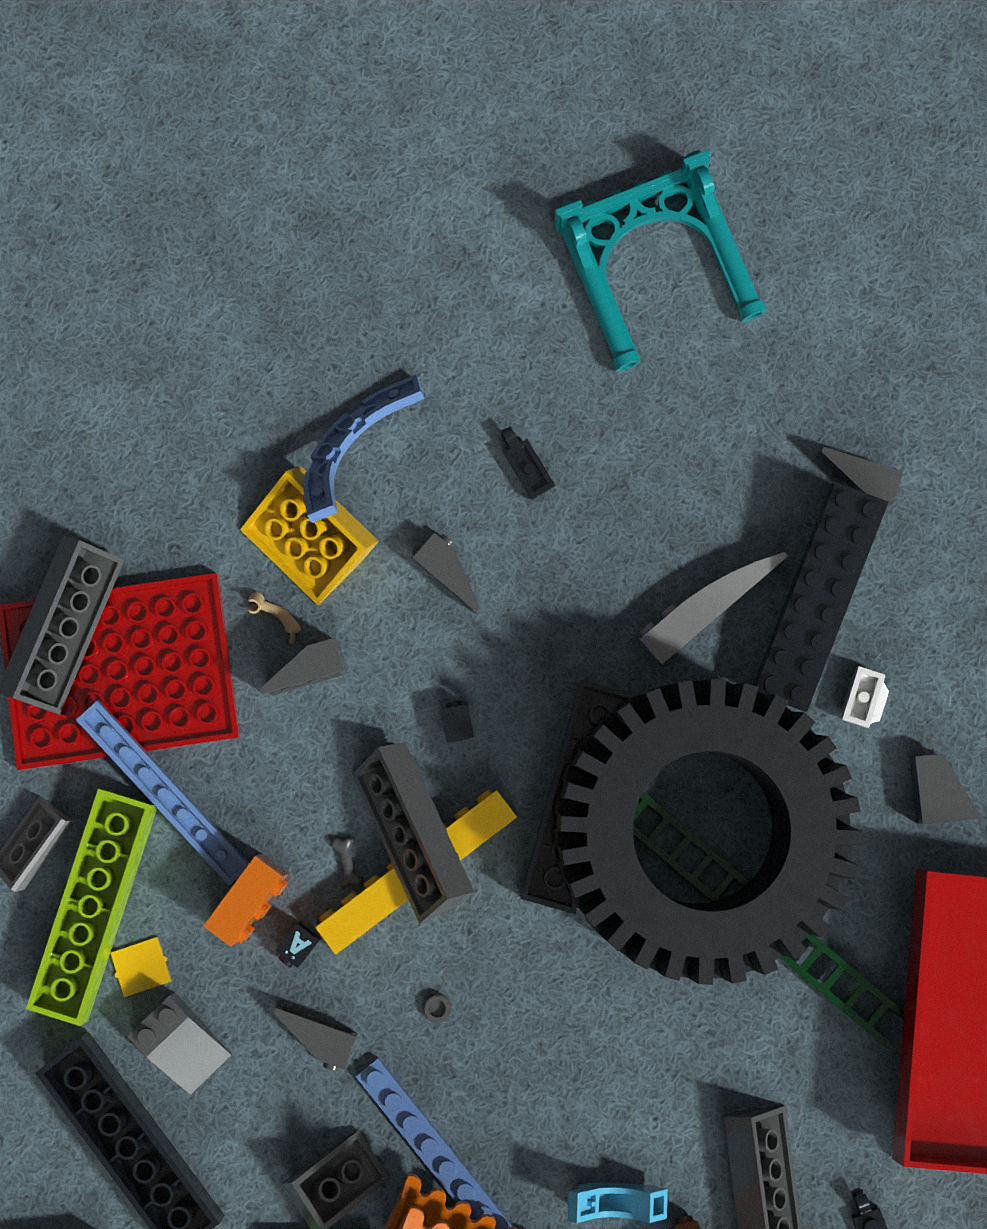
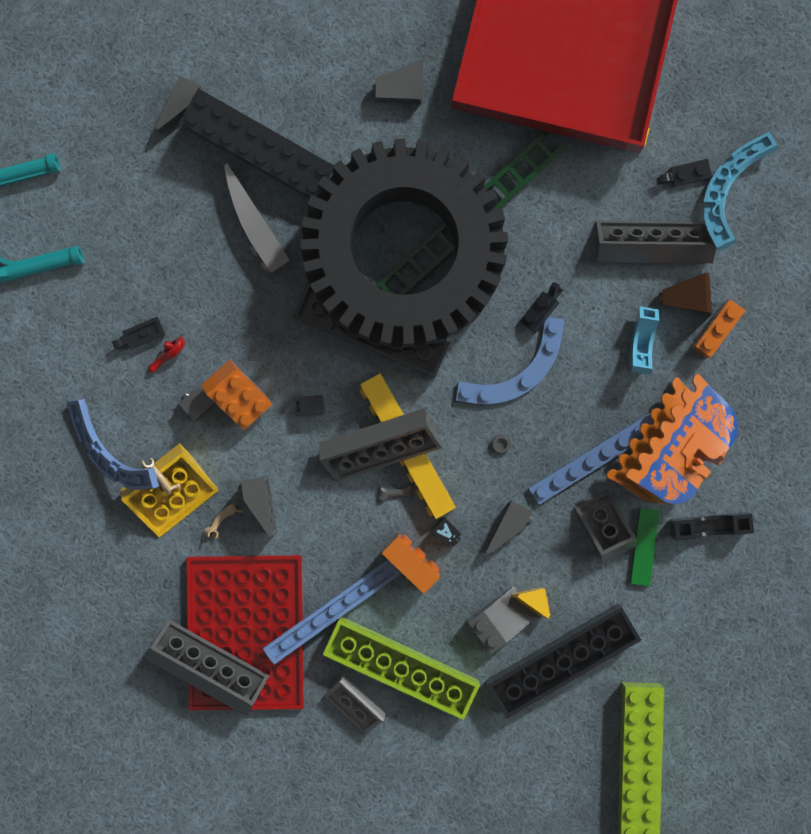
camera: 85 degrees left, 5 degrees up
(140, 967) = (447, 640): yellow piece -> none
(214, 1090) = (534, 600): none -> yellow slope
(320, 525) = (160, 478): none -> tan piece
(457, 614) = (236, 394): none -> orange brick
(506, 509) = (171, 350): none -> red piece
(535, 1032) = (526, 379): none -> medium blue plate
(643, 1042) = (542, 308): none -> black plate
(865, 698) = (331, 125): white slope -> none

